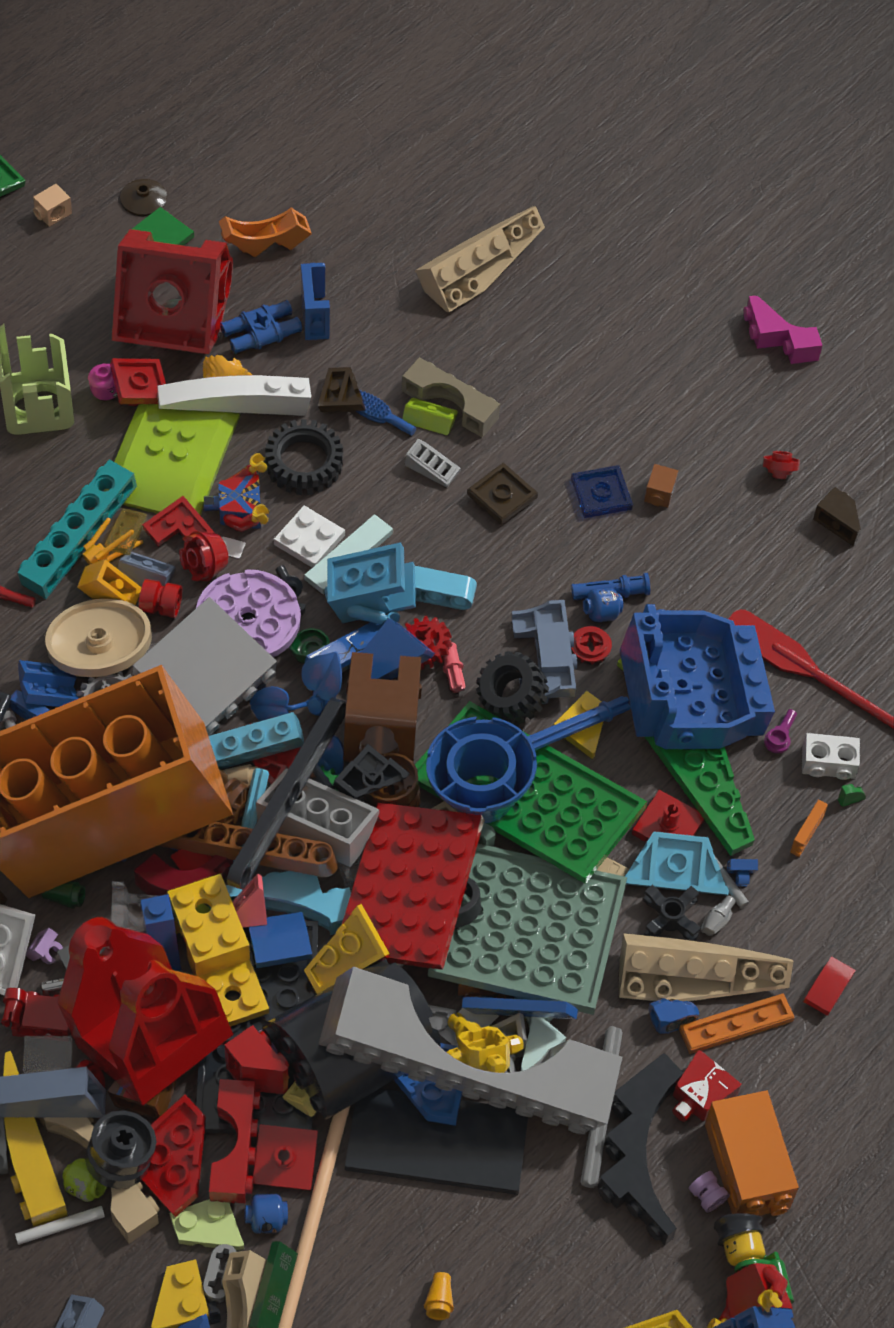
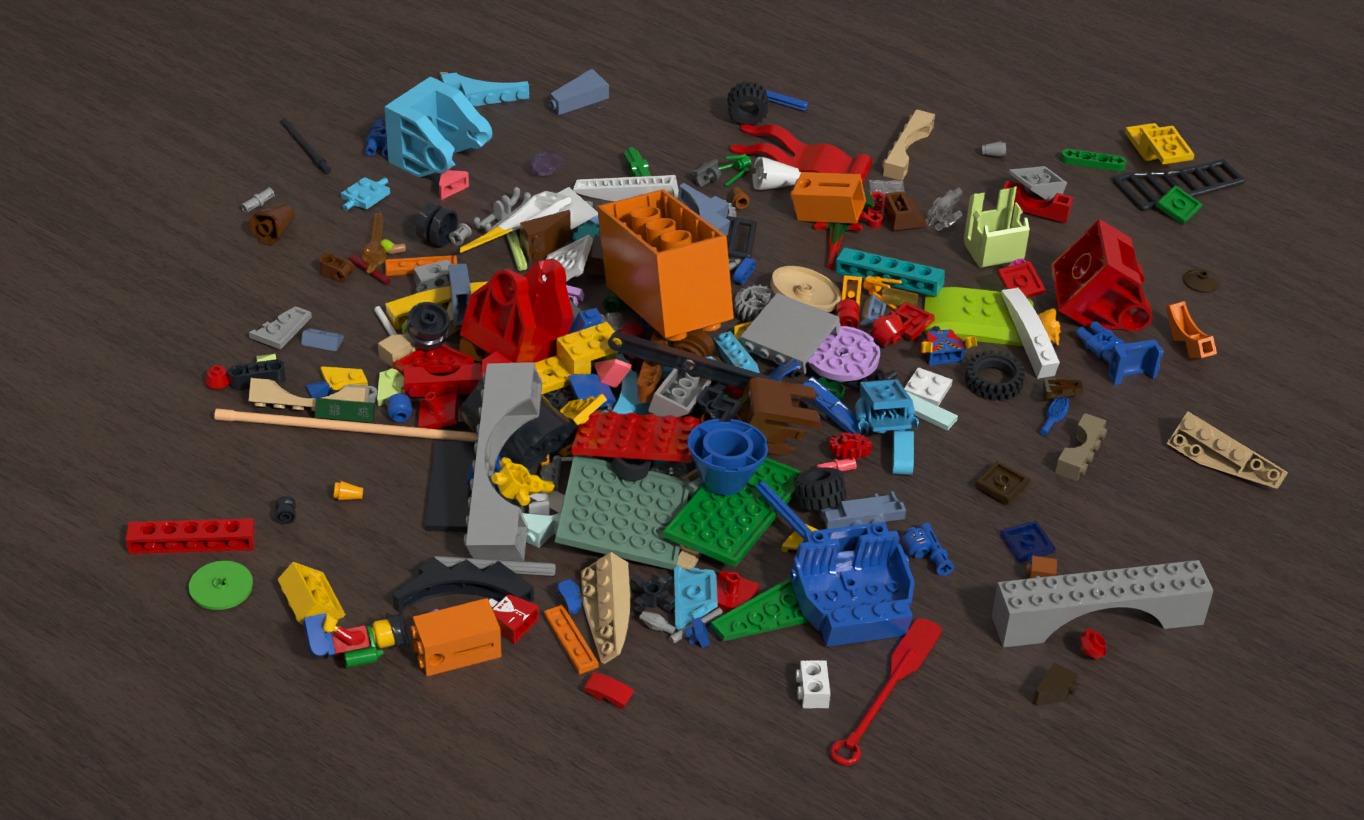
camera: 85 degrees right, 15 degrees down
(46, 684) = (760, 269): blue slope -> none
(52, 205) = (1166, 234): light nougat brick -> none
(165, 228) = (1168, 289): green tile -> none
(234, 547) = (907, 351): white sticker -> none
(390, 644) = (836, 423): blue slope -> none
(428, 452) = (1016, 441): light grey slope -> none
(429, 416) = (1061, 437): lime slope -> none
(528, 1008) = (553, 503): blue tile -> none
(742, 483) = (1036, 607): none -> light grey arch
(772, 330) = (1234, 636): dark pink arch -> none
(778, 738) = (824, 652): magenta plate -> none
(808, 828) = (744, 672): orange tile -> none
(850, 795) = (781, 700): green tile -> none

